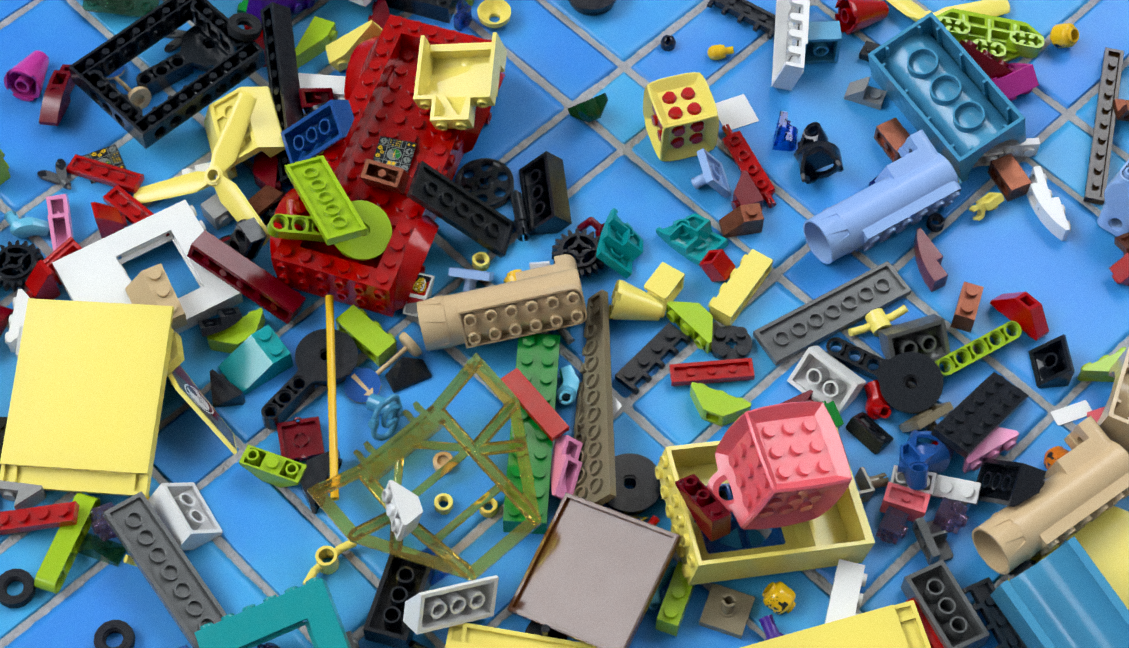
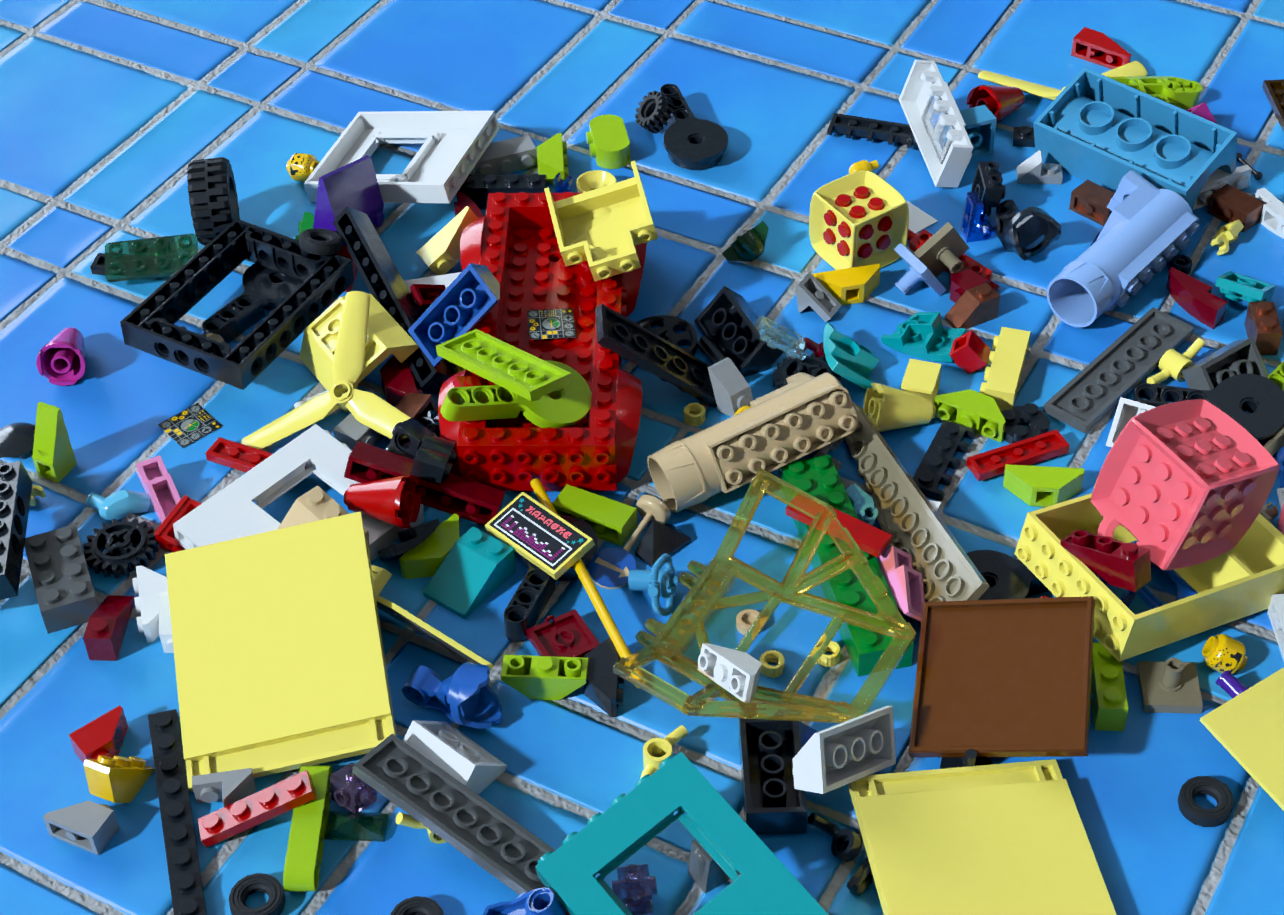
camera: 15 degrees left, 15 degrees down
(42, 283) = (163, 541): red slope -> none
(56, 97) = (109, 367): dark red slope -> none
(59, 178) = (140, 449): dark grey piece -> none
(105, 173) = (197, 431): red tile -> none
(108, 219) = (220, 469): red slope -> none
(177, 35) = (234, 287): dark grey piece -> none
(209, 470) = (462, 697): none -> blue piece
(210, 287) = (387, 500): none -> red cone
(224, 392) = (445, 612): black slope -> none
(255, 260) = (434, 458): none -> black brick
(312, 348) = (539, 535): none -> tile
(316, 37) = (403, 246): lime slope -> none
(384, 176) = (555, 340): copper brick -> none
(421, 291) = (639, 472): slope -> none
(470, 276) = (692, 422): light blue tile -> none
(512, 249) = (729, 387): none -> light grey slope
(567, 209) = (781, 337): none -> clear light blue plate
(622, 179) = (814, 294): none -> light grey slope
(653, 169) = (850, 284): none -> yellow slope
(668, 47) = (801, 174): black hinge -> none
(735, 162) = (943, 251): none -> dark tan tile
(805, 105) = (988, 185): none -> black plate
(971, 264) = (1243, 287): none -> teal plate
(1043, 121) = (1257, 175): none -> black hinge
(1064, 35) = (1216, 78): yellow head -> none

